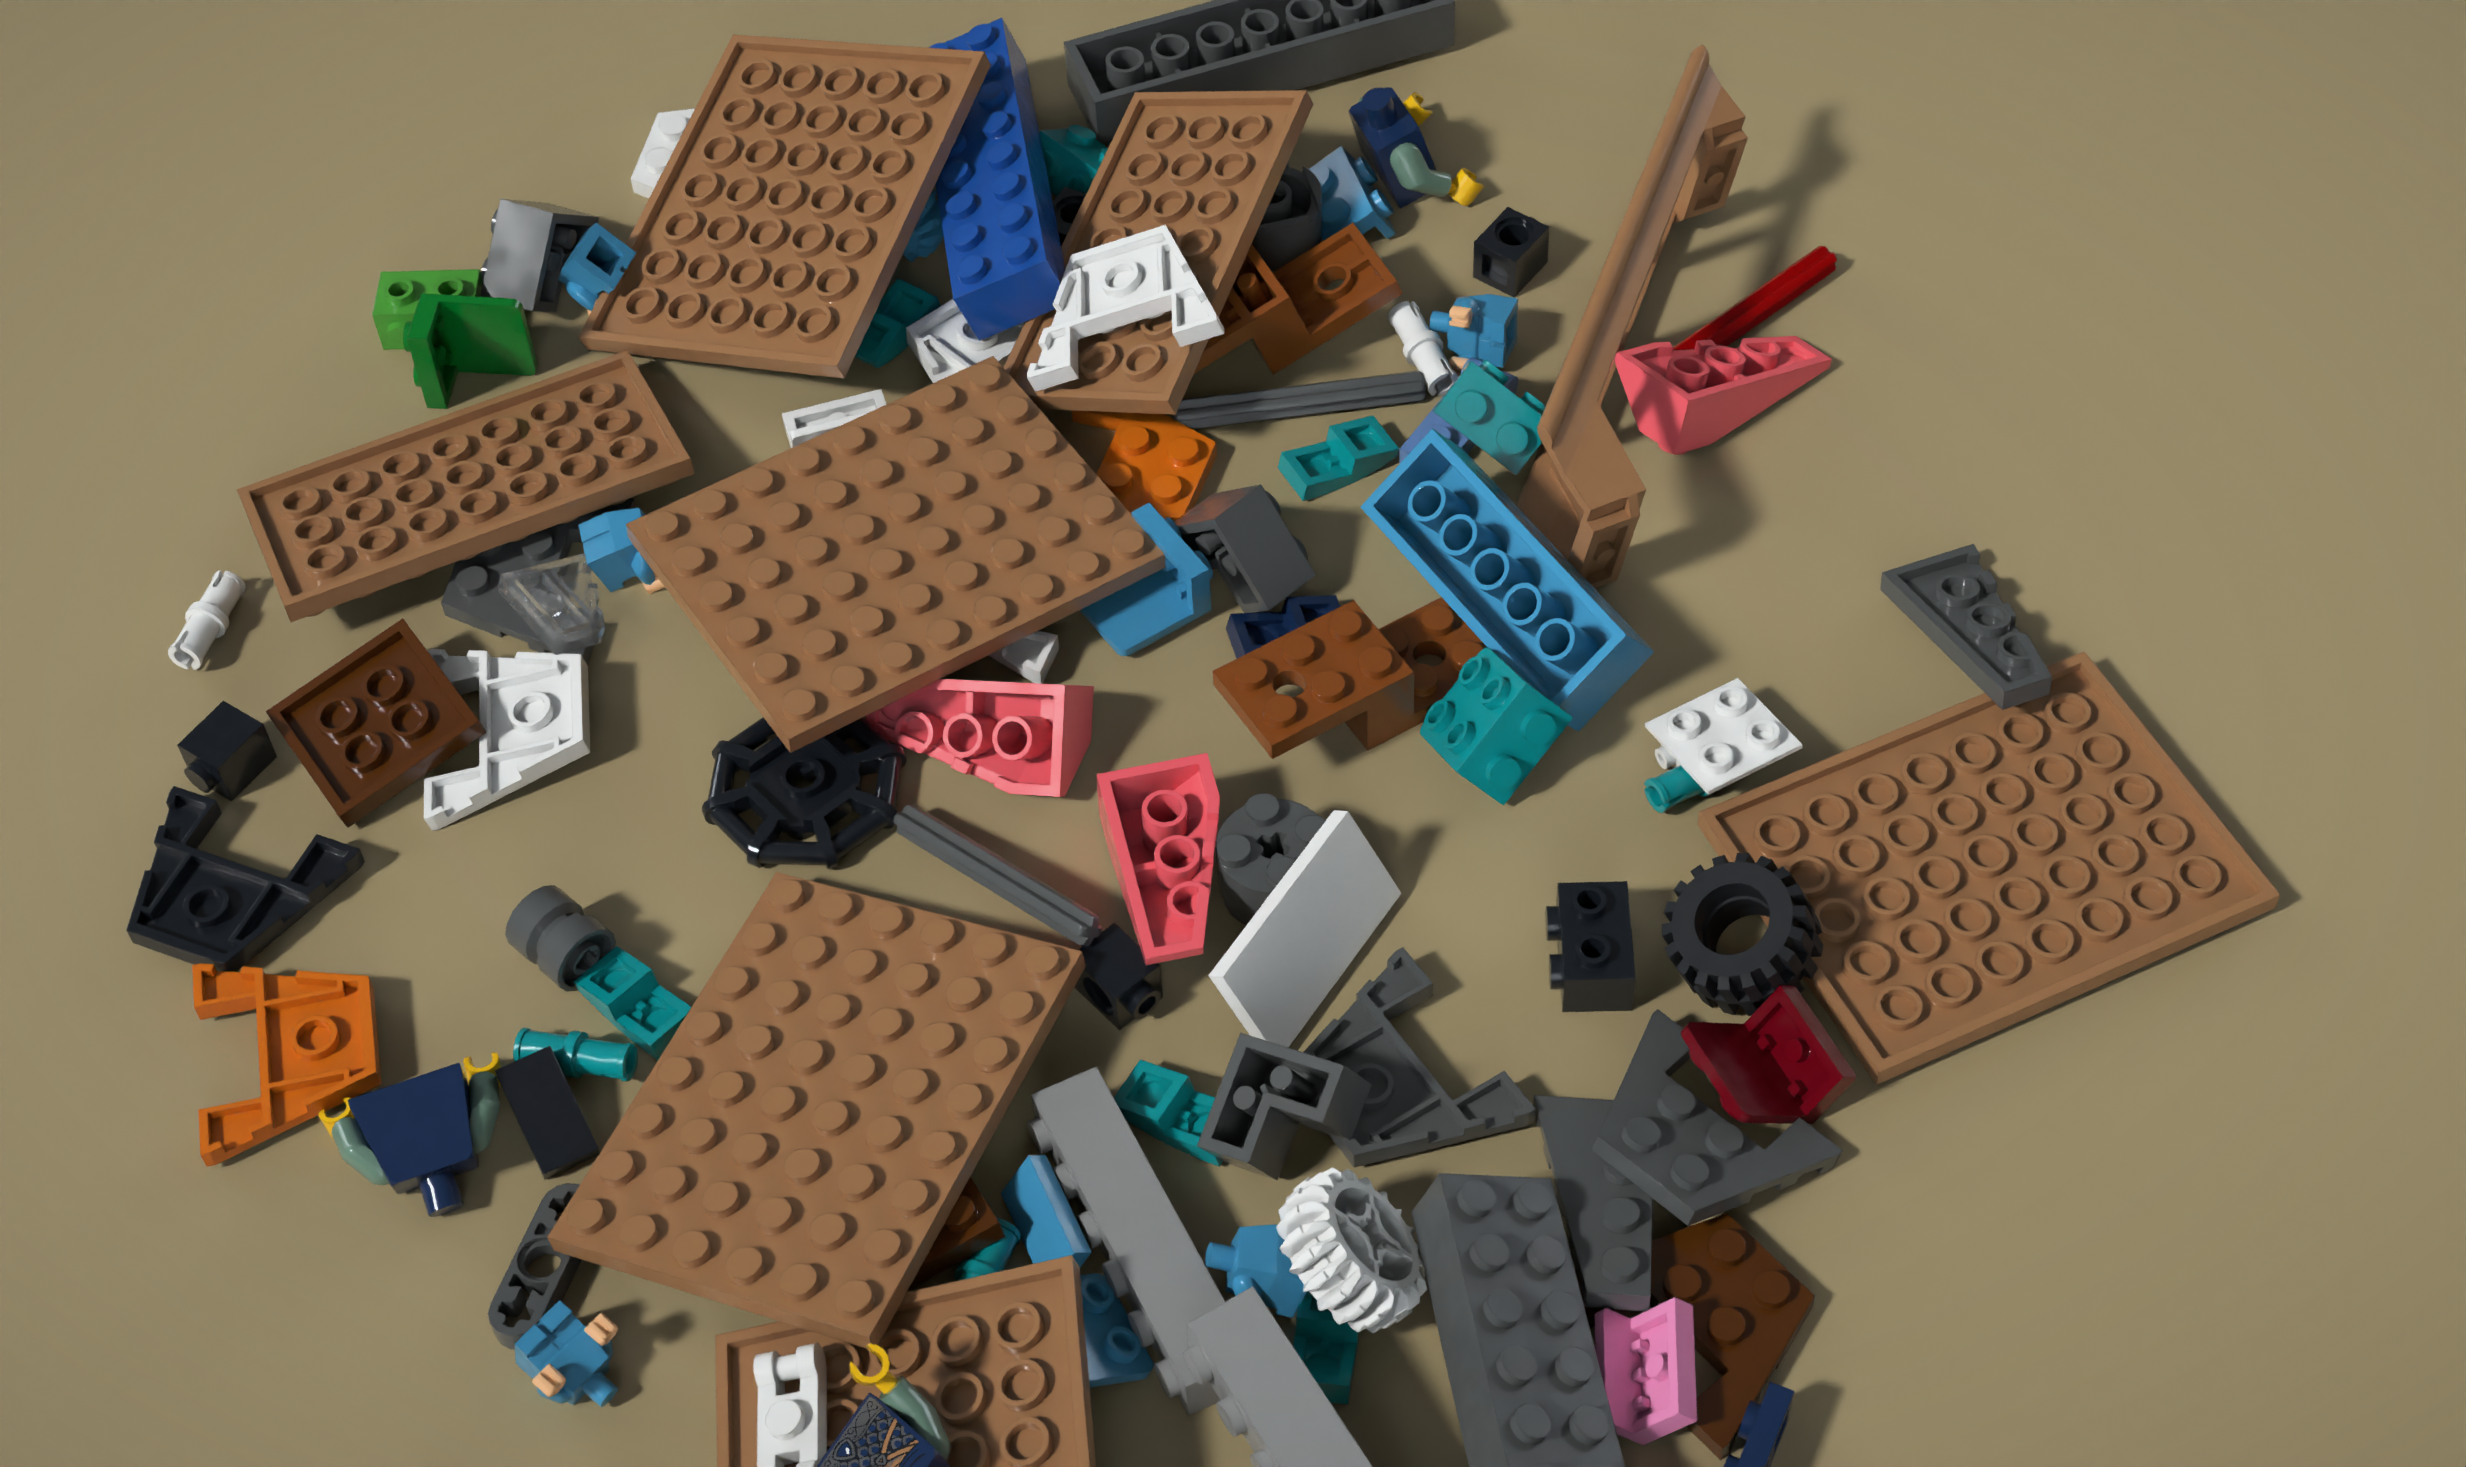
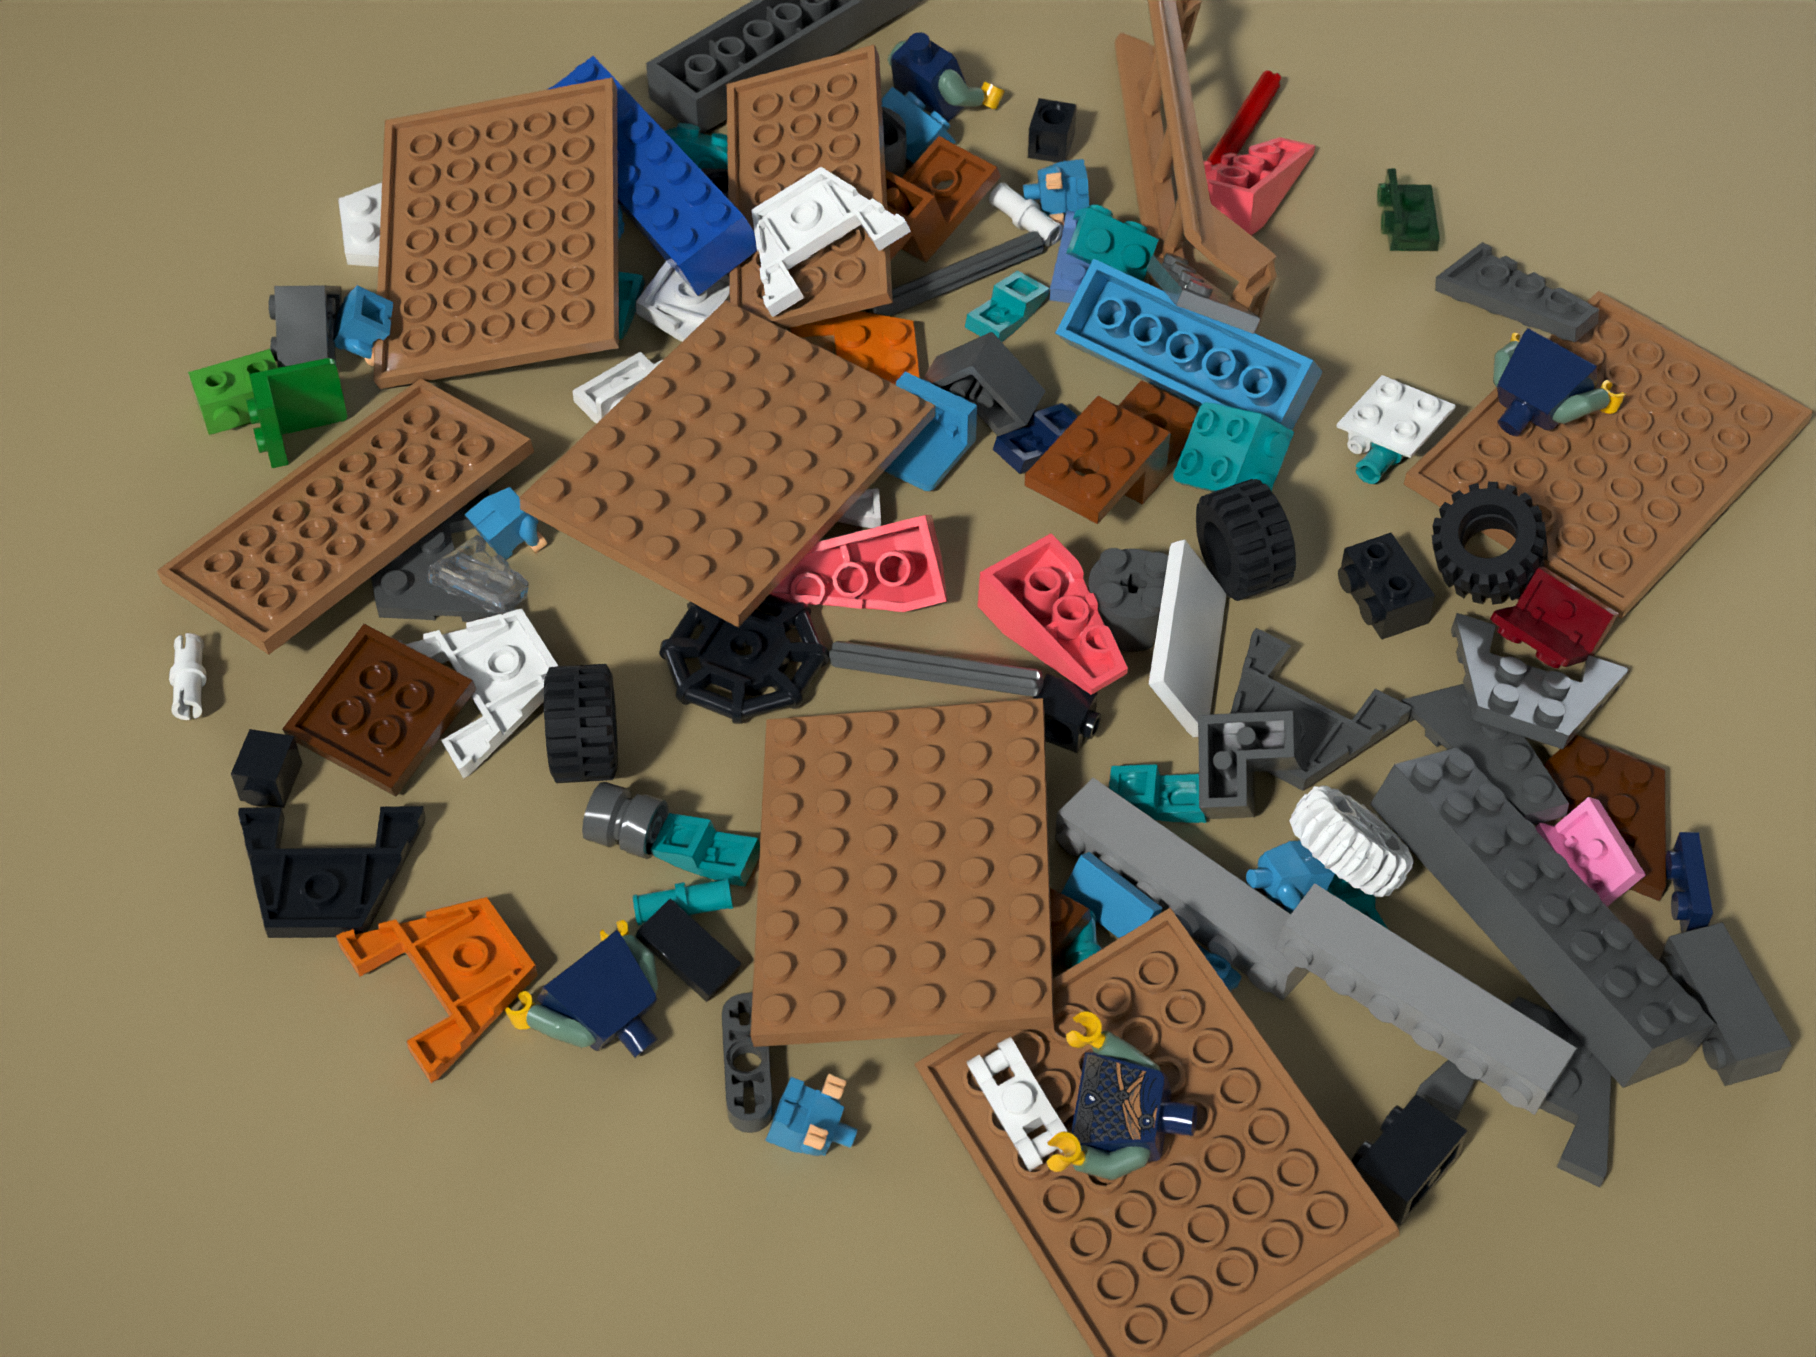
camera: 25 degrees left, 0 degrees up
(560, 809) = (580, 723): none -> black tyre
(1437, 834) = (1245, 539): none -> black tyre
(1537, 511) = (1197, 294): none -> dark grey wing
(1900, 481) = (1407, 215): none -> clear green bracket
(1928, 756) = (1547, 384): none -> dark blue torso

